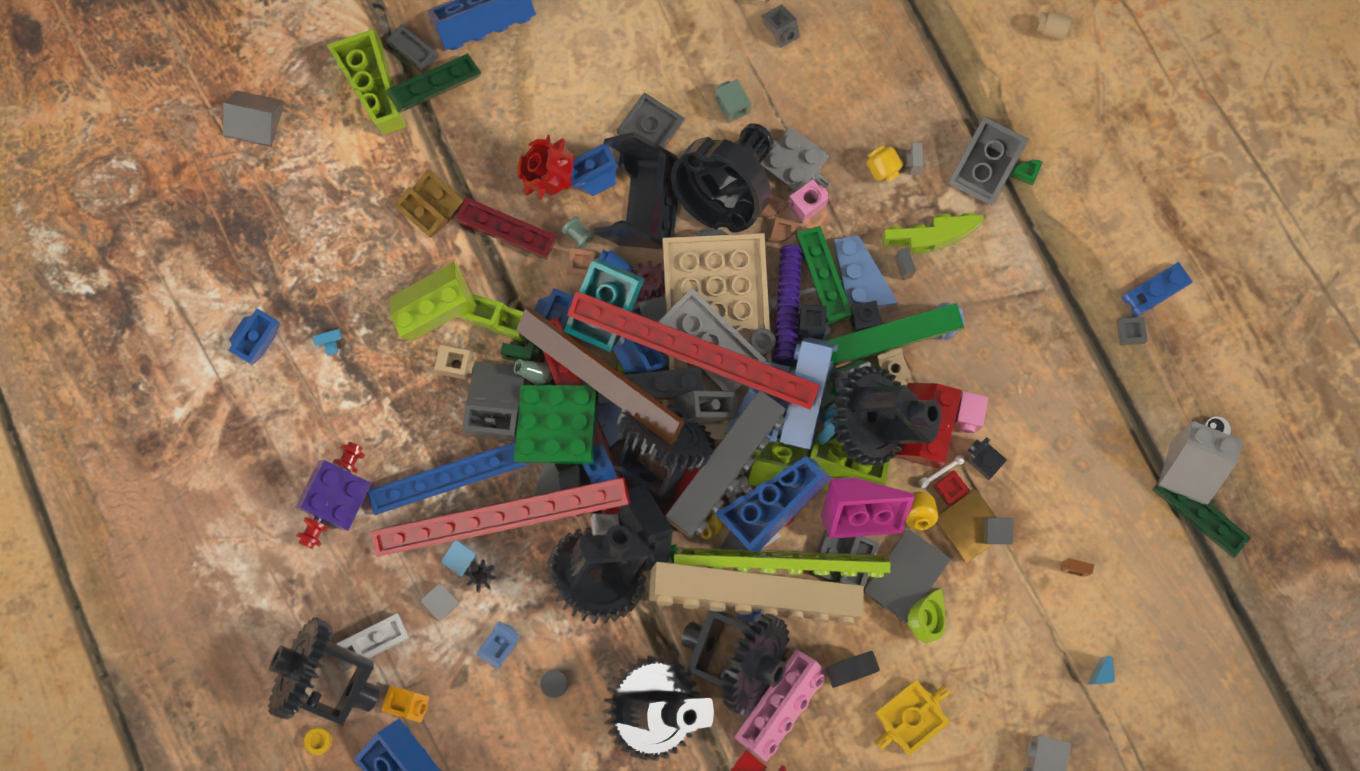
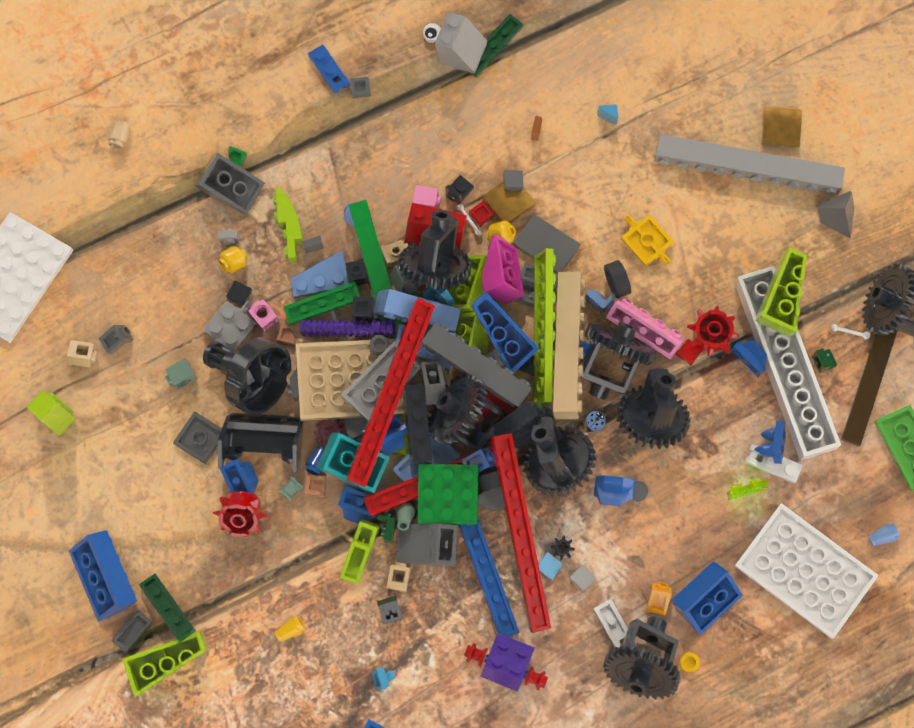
camera: 85 degrees left, 0 degrees up
(401, 232) = (290, 628): none -> yellow cone
(412, 349) = (389, 609): none -> bracket
(430, 203) = (267, 607): pearl gold slope -> none
(430, 302) = (350, 599): lime slope -> none
(499, 645) = (613, 531): medium blue bracket -> none
(506, 228) = (287, 545): dark red plate -> none
(553, 649) = (613, 490): none -> blue slope
(600, 376) = (413, 459): tile -> none
(602, 522) = (525, 455): white tile -> none
(654, 631) = (595, 421): none -> medium blue tile
(826, 641) = (597, 300): none -> medium blue bracket
(840, 172) = (239, 293): none -> black tile
(928, 617) = (576, 229): lime piece -> none

